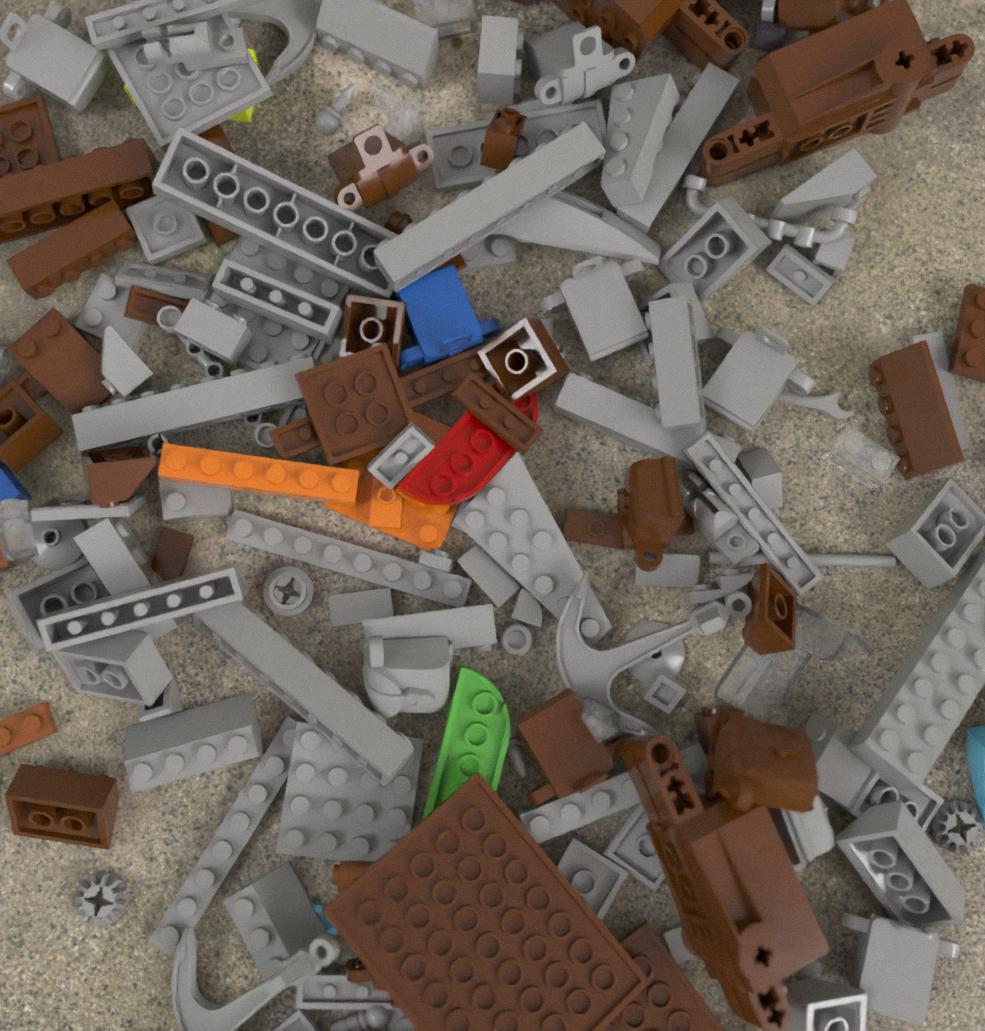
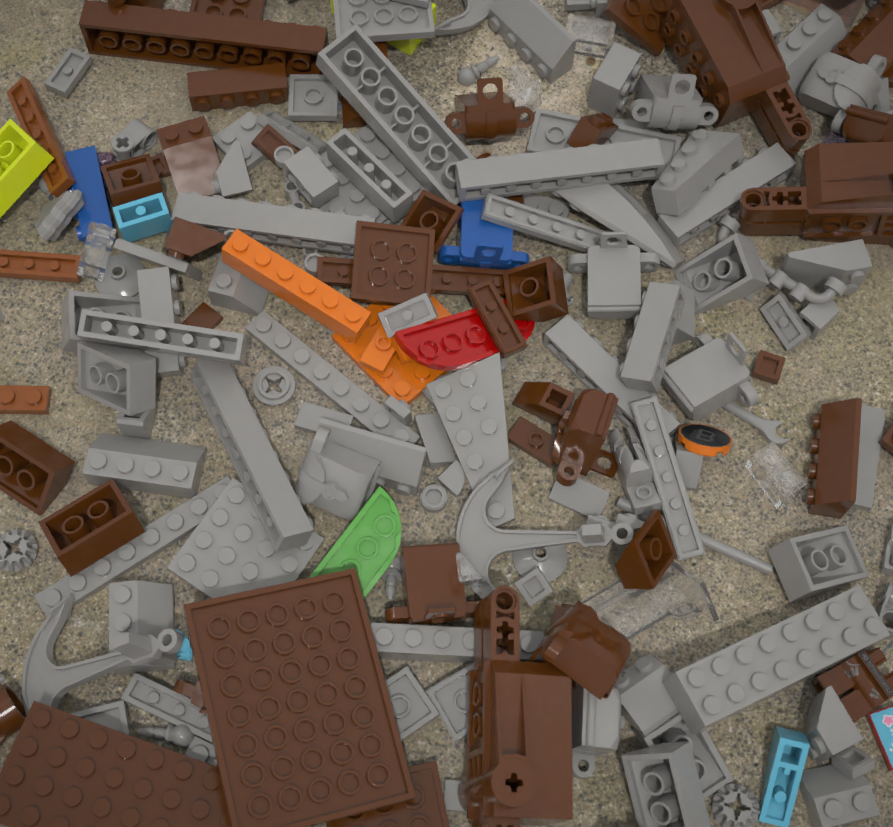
camera: 25 degrees right, 15 degrees down
(45, 461) = (143, 217): none -> medium azure brick
(172, 846) = (91, 527): none -> reddish brown brick
(500, 276) = (541, 223): none -> light grey tile
(586, 481) = (544, 400): none -> reddish brown slope
(772, 451) = (704, 439): none -> tile
(802, 335) = (768, 367): none -> reddish brown plate

